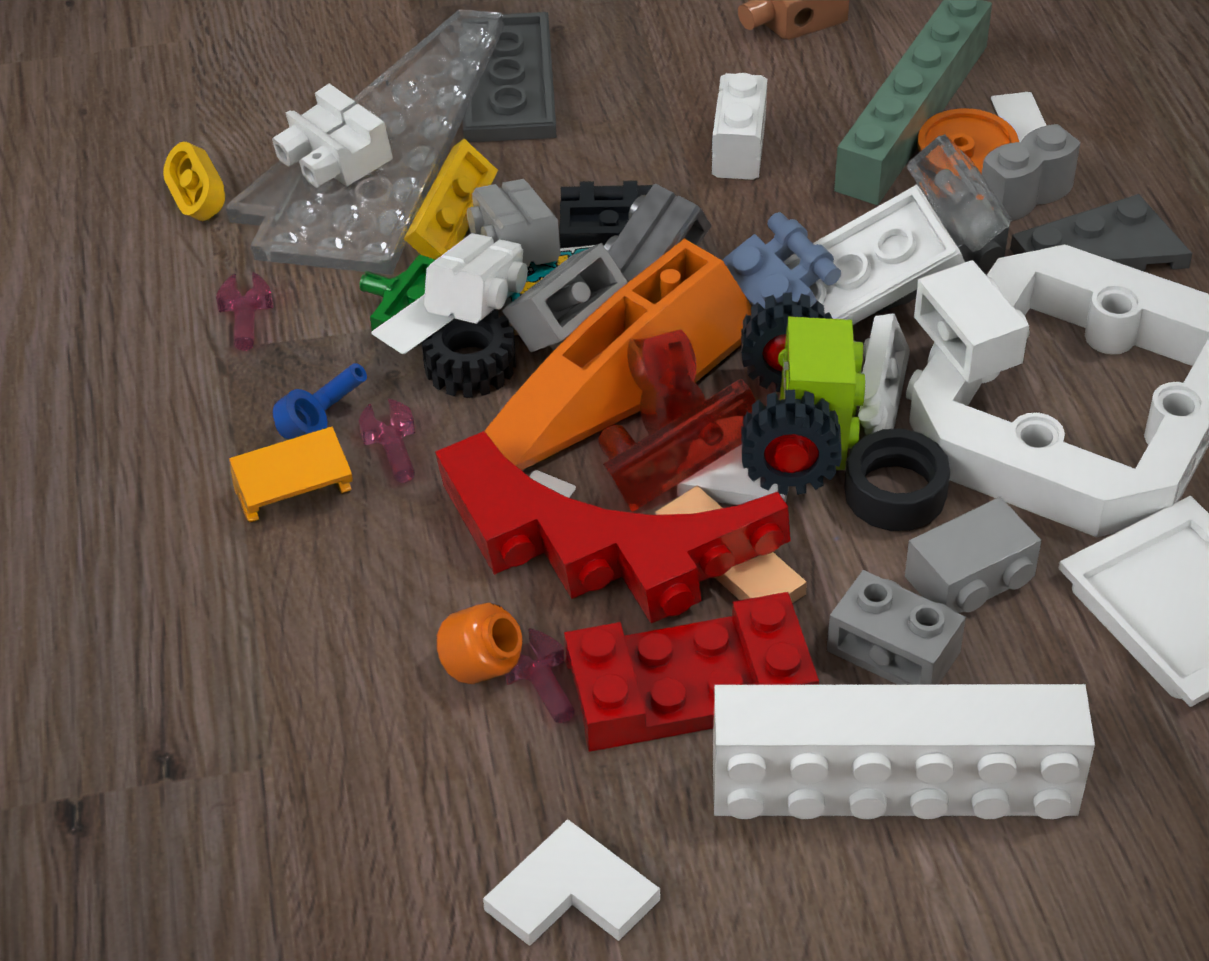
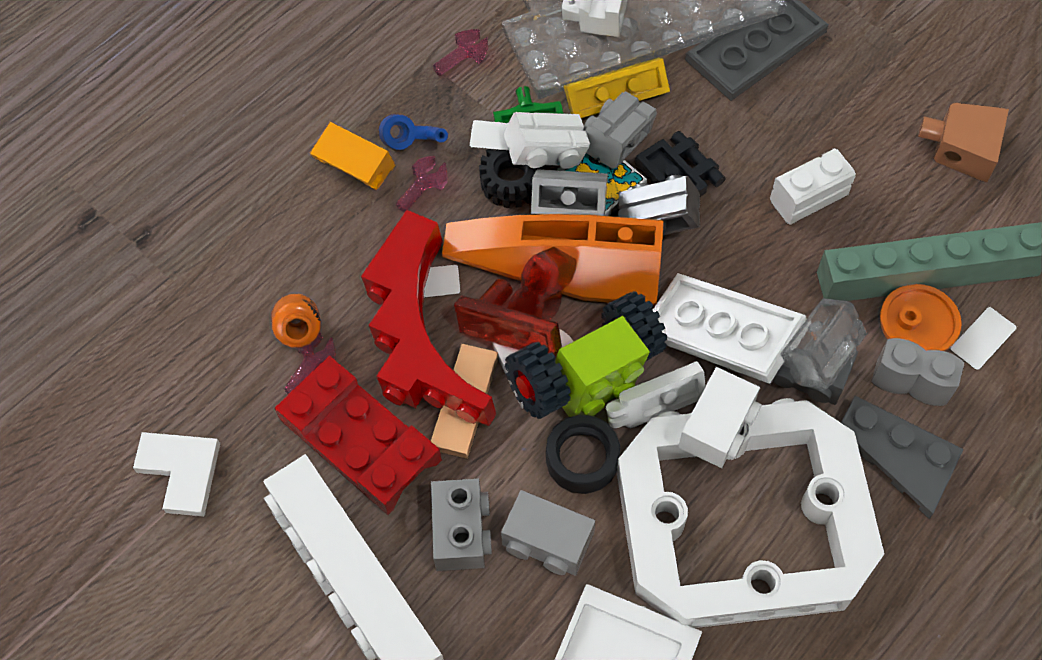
camera: 55 degrees right, 15 degrees up
(762, 270) = (680, 284): sand blue plate -> none

